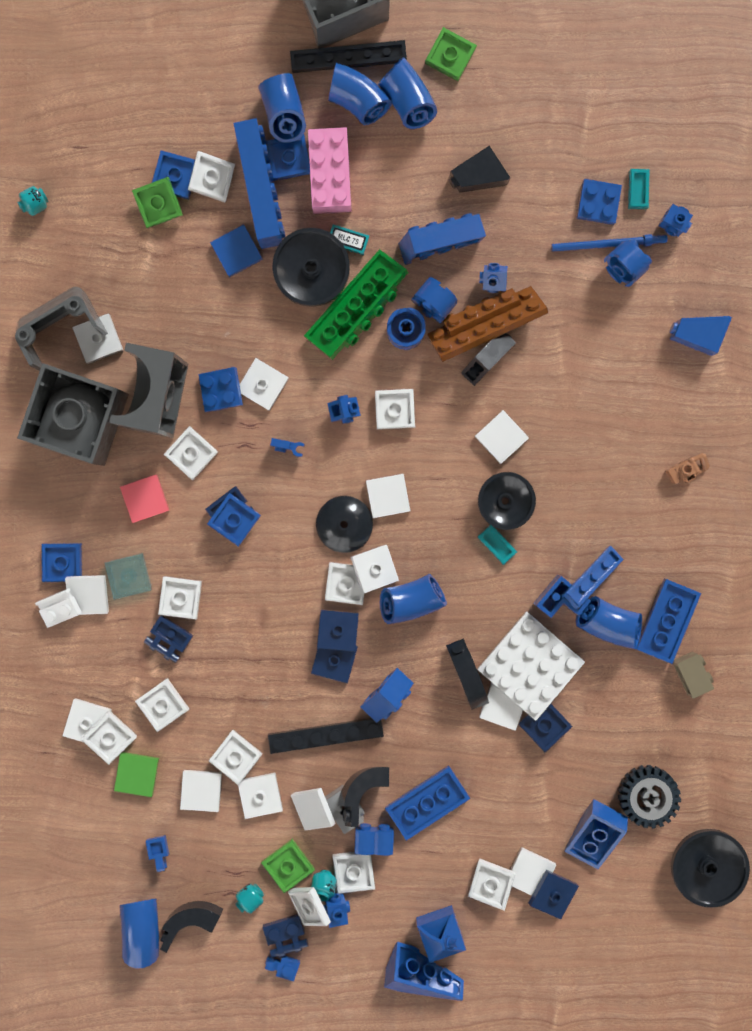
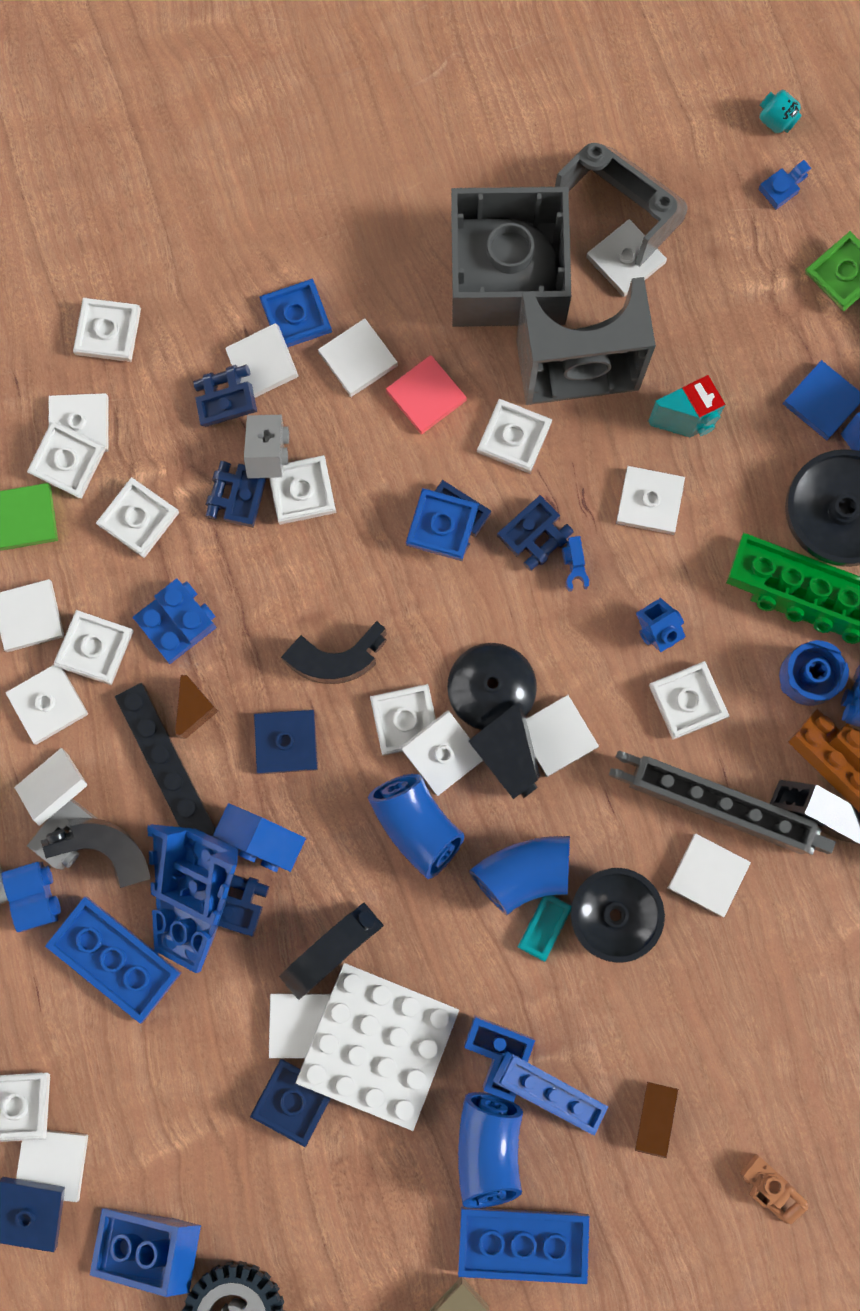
camera: 75 degrees right, 10 degrees down
(30, 685) = (107, 329): none -> white plate
(58, 608) = (230, 329): white plate -> none
(84, 220) = (783, 186): none -> blue plate
(105, 533) = (358, 357): none -> white tile
(107, 626) = (228, 402): none -> dark blue plate
(128, 576) = (308, 409): clear light blue plate -> none
(145, 612) = (265, 446): none -> light grey brick
(215, 339) = (689, 409): none -> teal slope
(220, 389) = (620, 444): blue plate -> none
(236, 702) = (175, 620): none -> blue plate
(252, 464) = (530, 525): none -> dark blue plate
(294, 709) = (192, 708): none -> reddish brown slope
(295, 625) = (335, 667): none -> black arch
(337, 631) = (330, 731): dark blue plate -> none
(388, 529) = (509, 751): none -> black slope
(405, 746) = (189, 891): none -> blue wedge
(424, 725) = (243, 914): none -> dark blue plate
(463, 545) = (524, 872): none -> blue brick
(465, 414) = (723, 805): none -> dark grey hinge
(627, 520) = (656, 1120): none -> reddish brown slope

